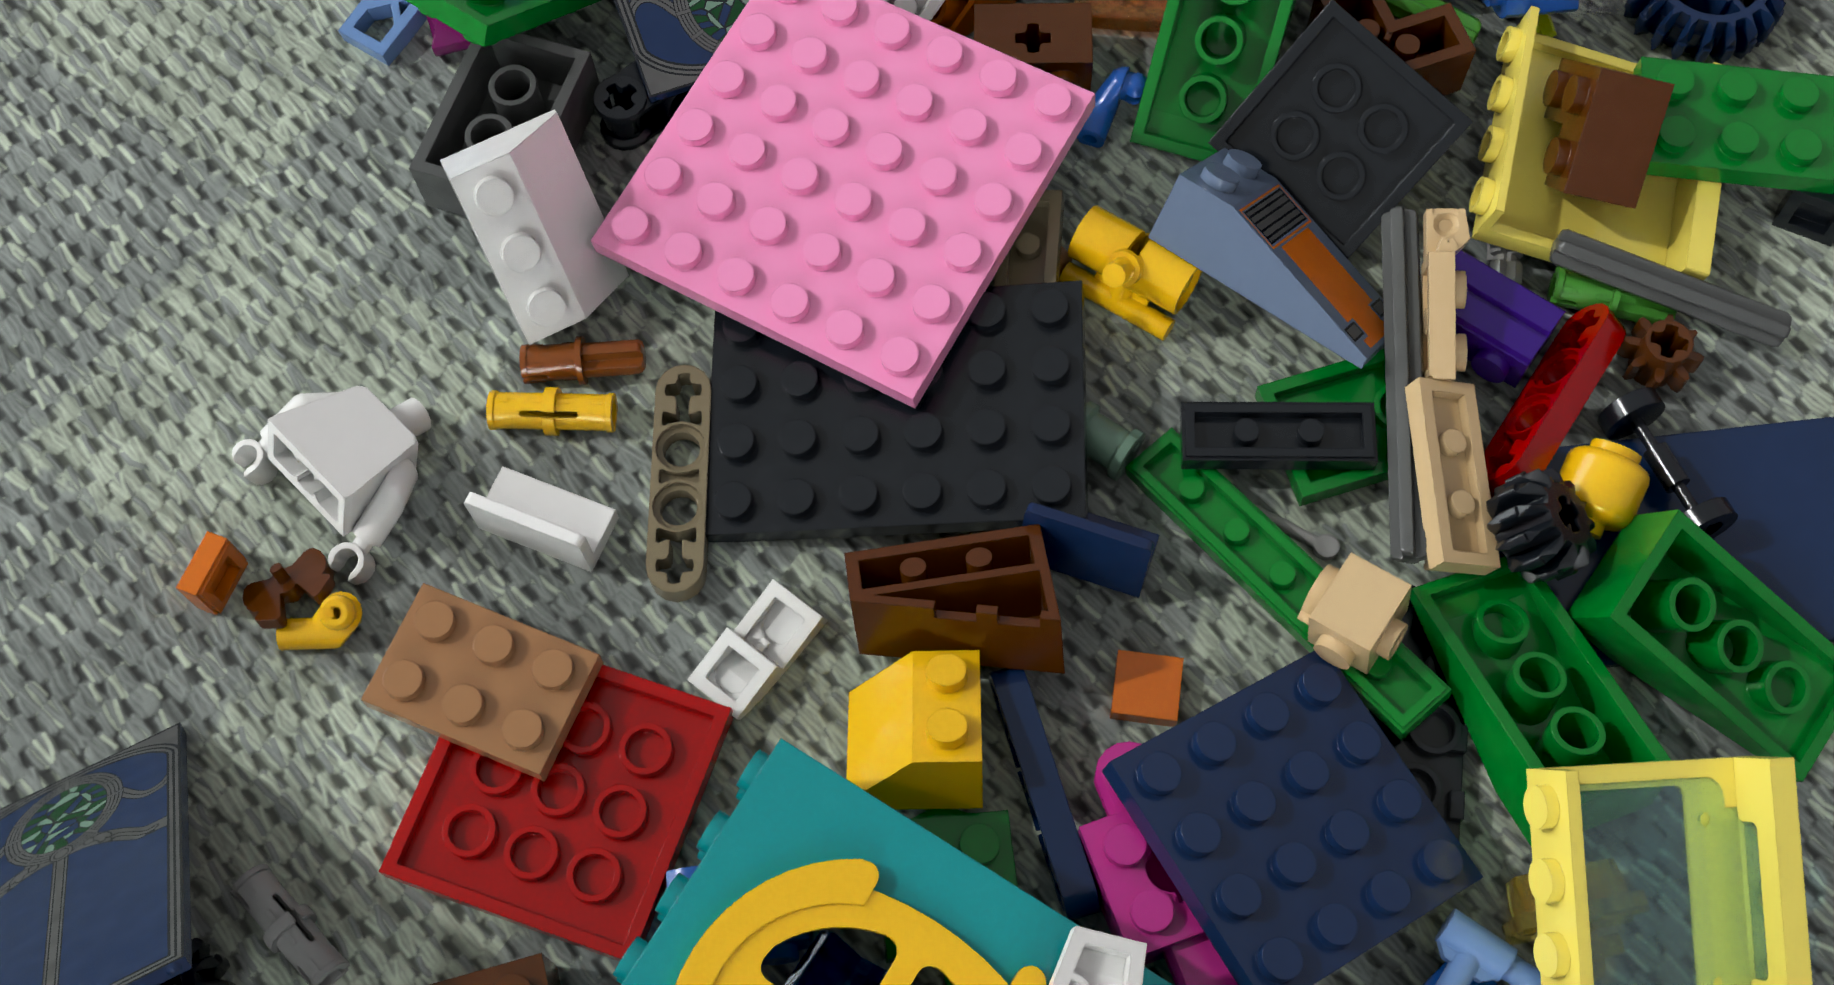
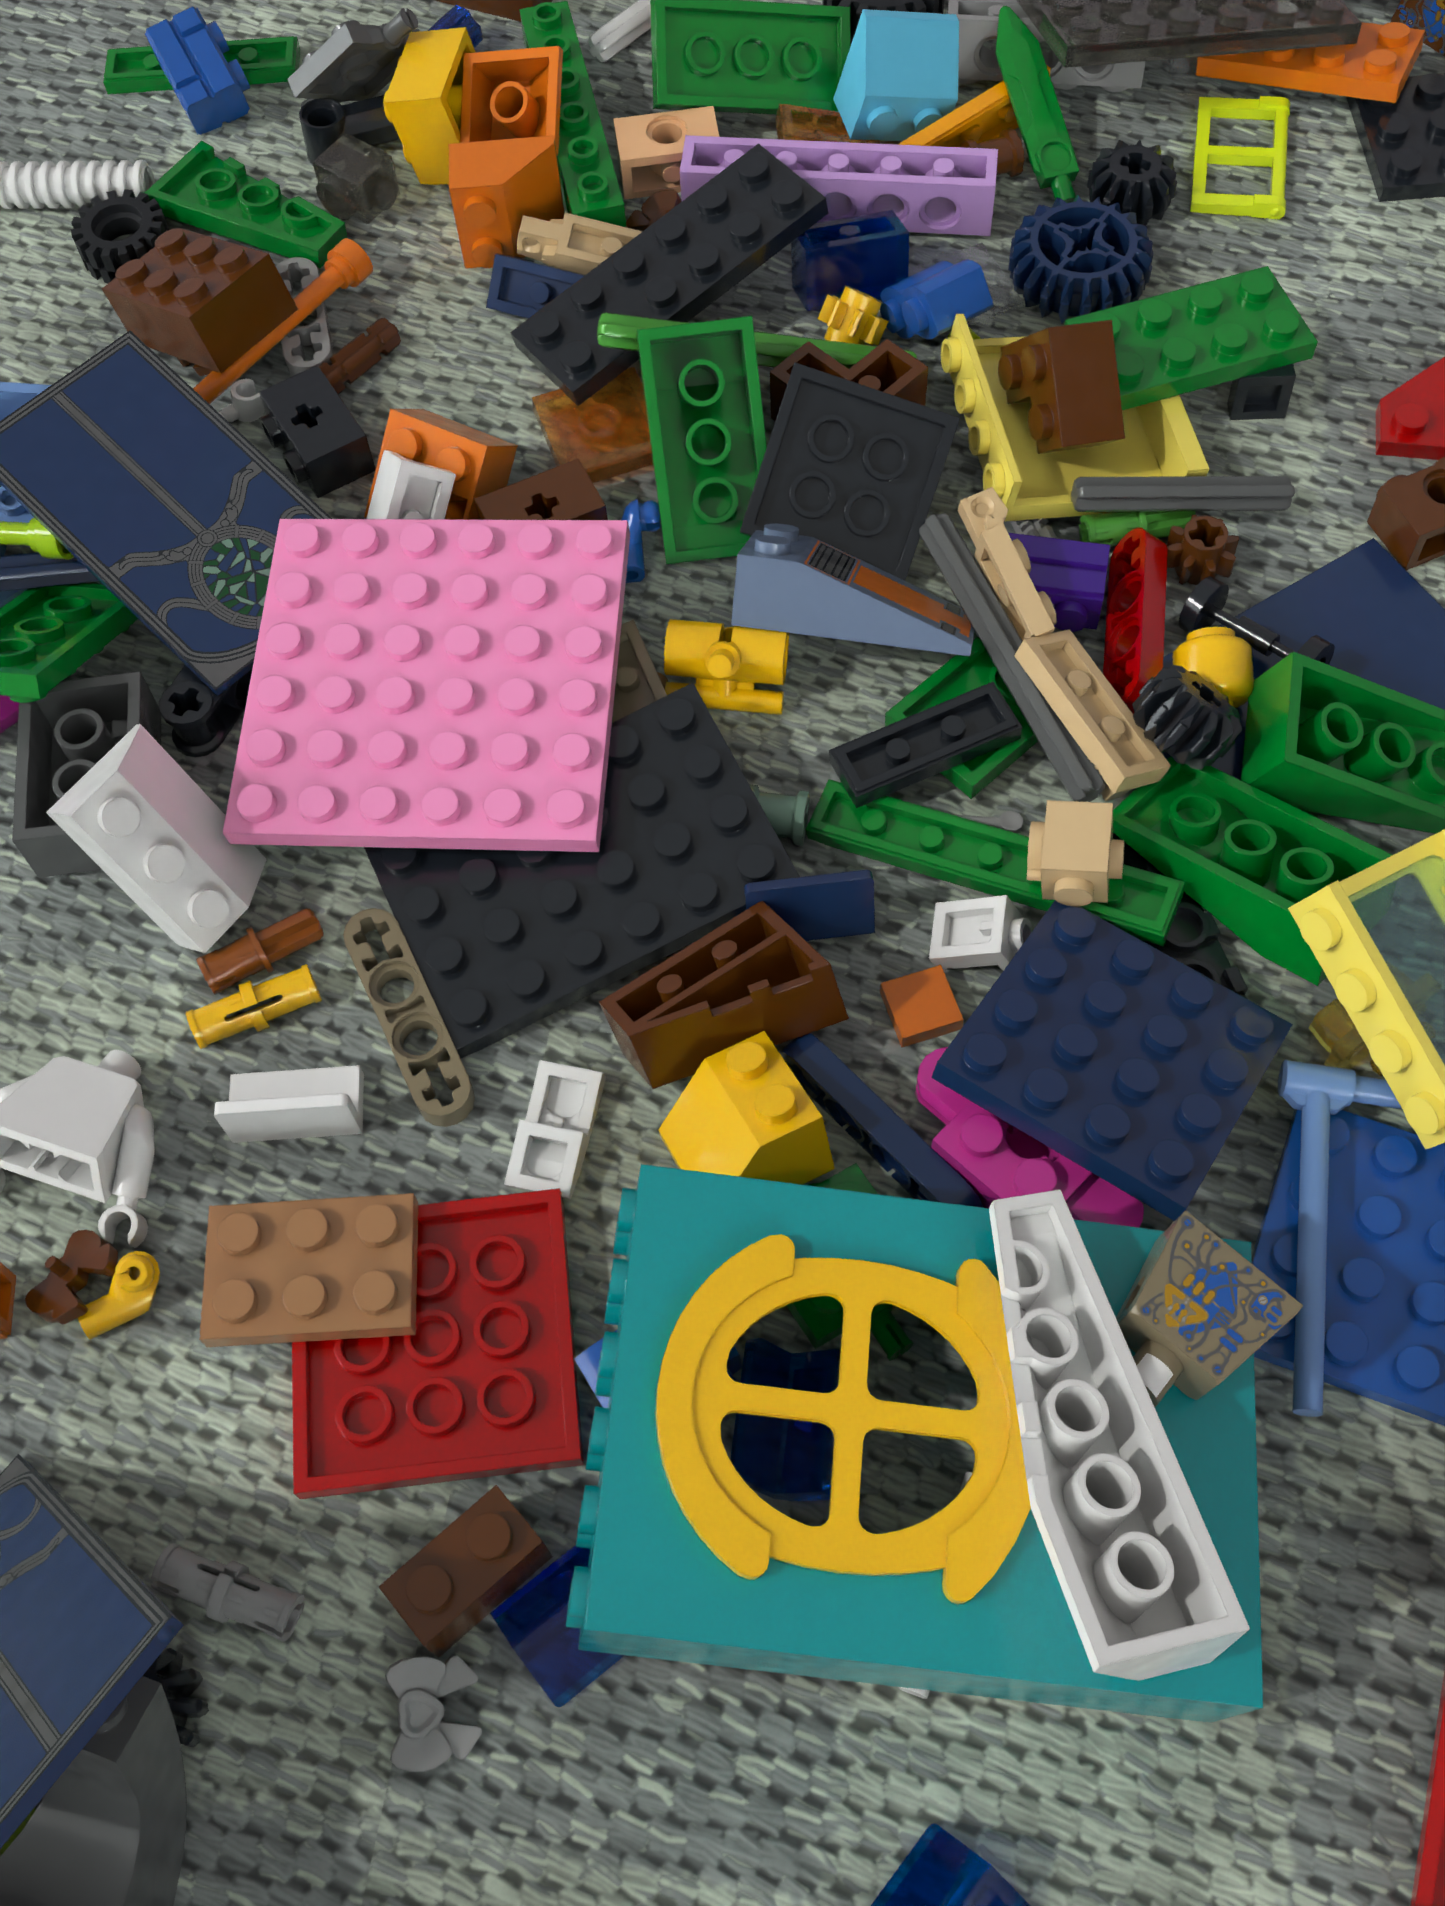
camera: 25 degrees left, 5 degrees down
(1233, 643) = (977, 932): none -> white bracket

